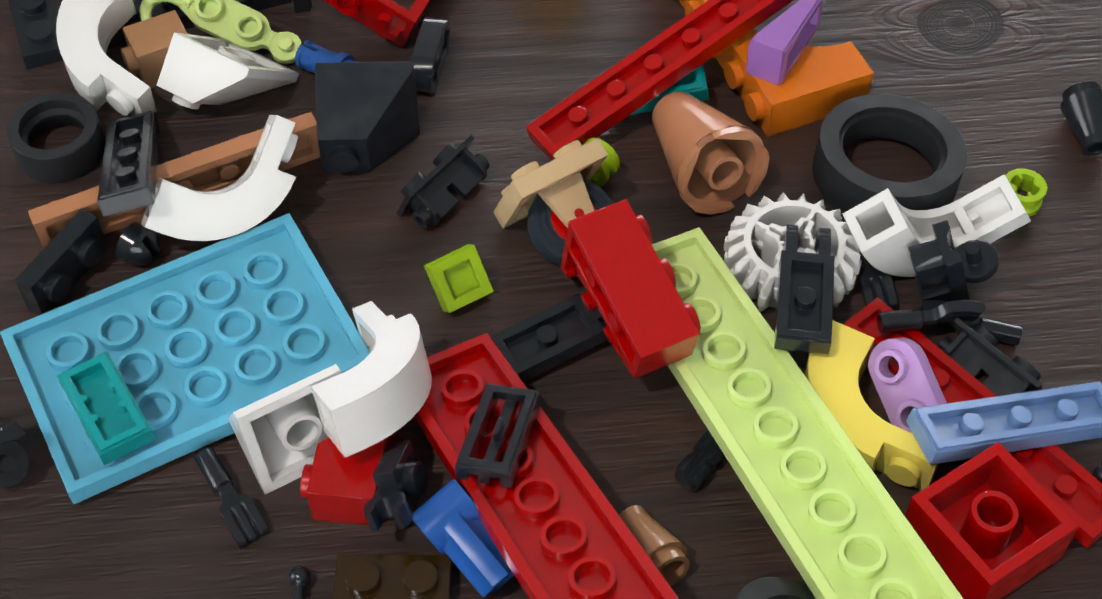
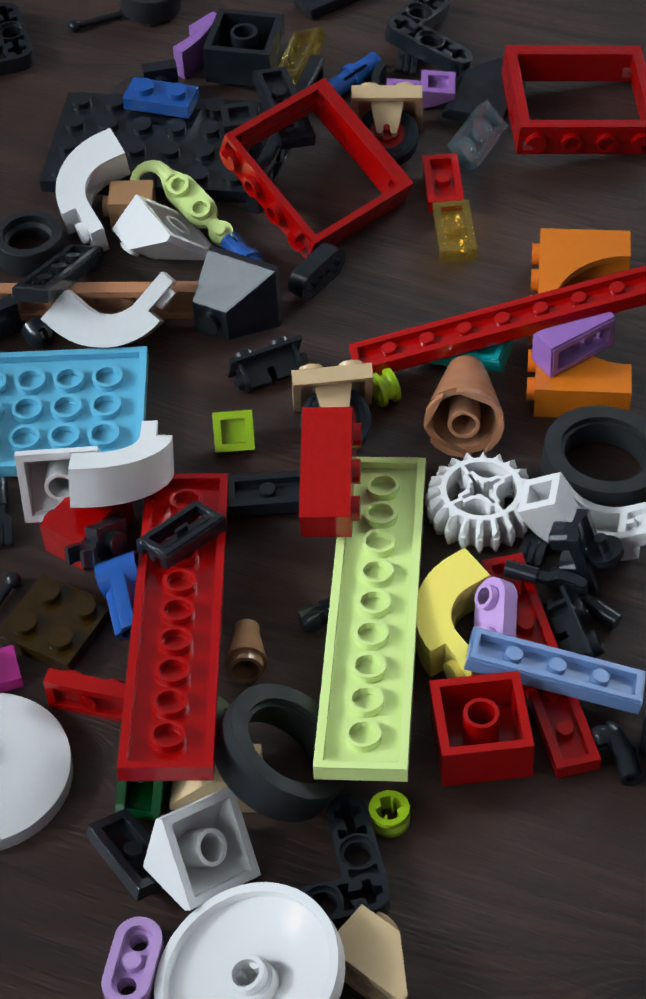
camera: 30 degrees right, 5 degrees down
(805, 294) = (455, 522): black hinge -> none

